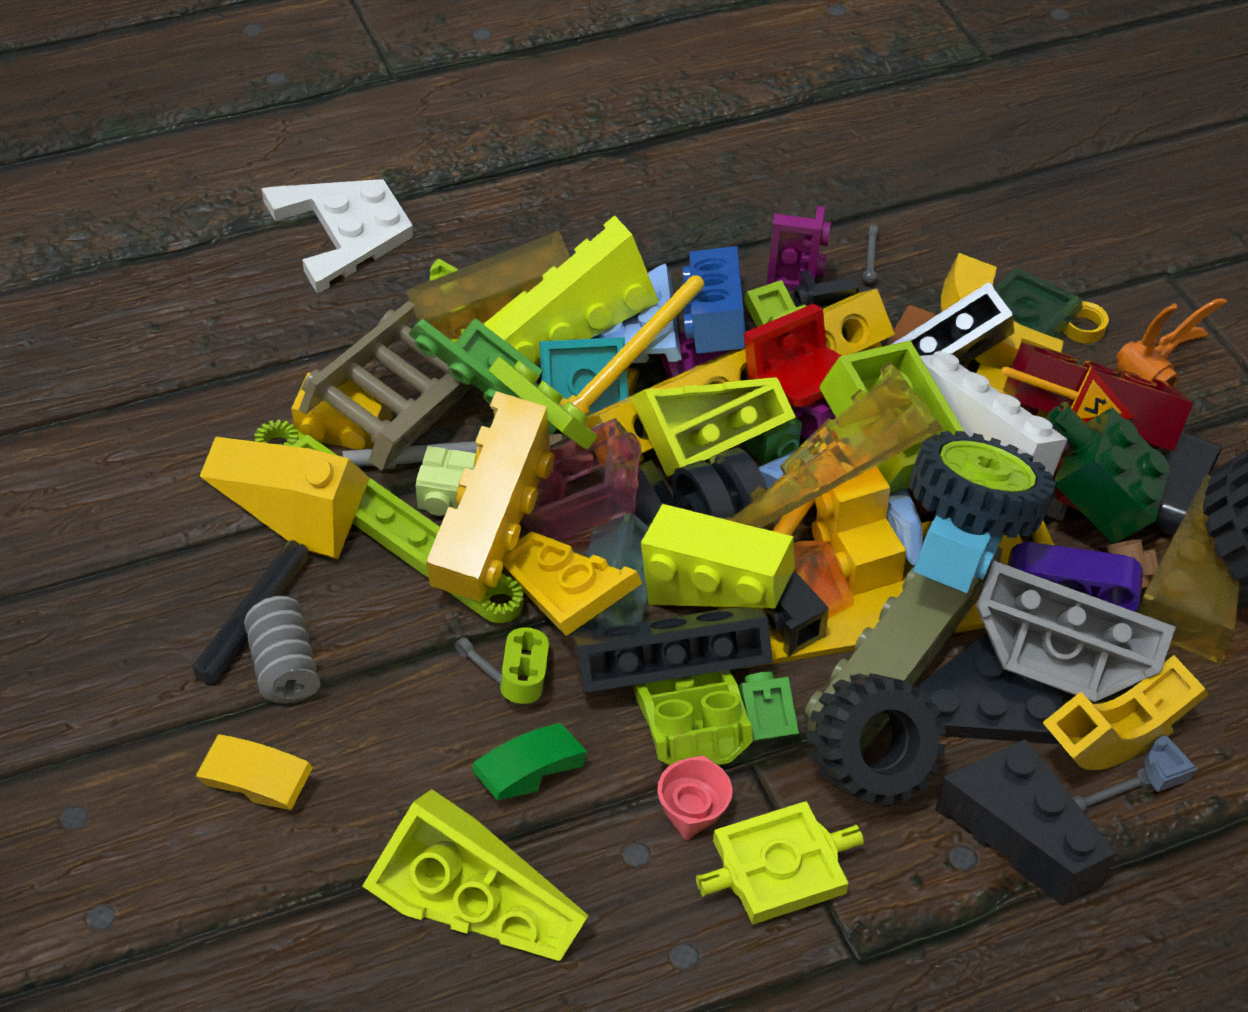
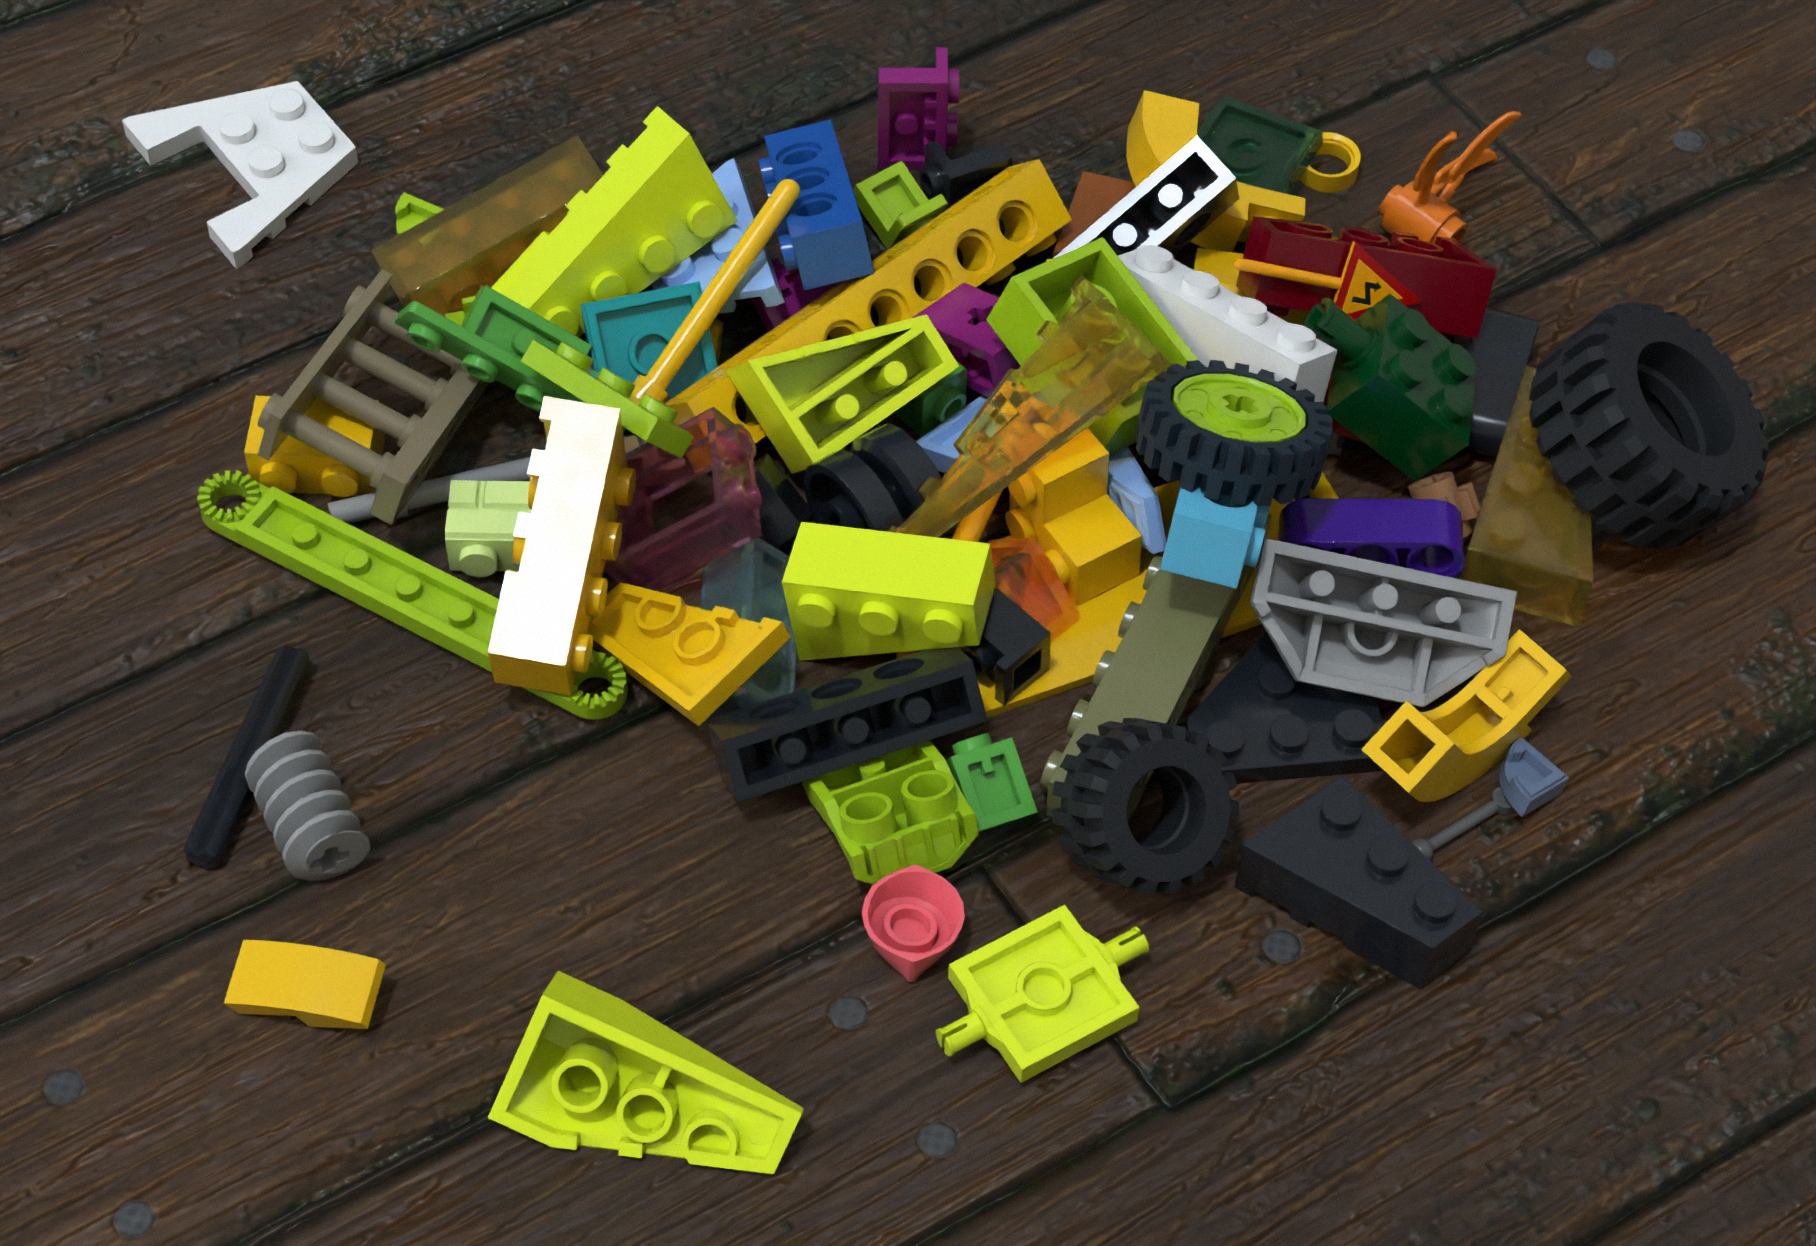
camera: 10 degrees left, 5 degrees up
(290, 489) = (266, 572): yellow wedge -> none
(466, 650) = (645, 816): dark grey hinge -> none
(523, 761) = (672, 910): green slope -> none
(526, 665) = (655, 774): lime beam -> none
(793, 352) = (941, 273): red bracket -> none
(870, 276) = (1020, 134): dark grey hinge -> none

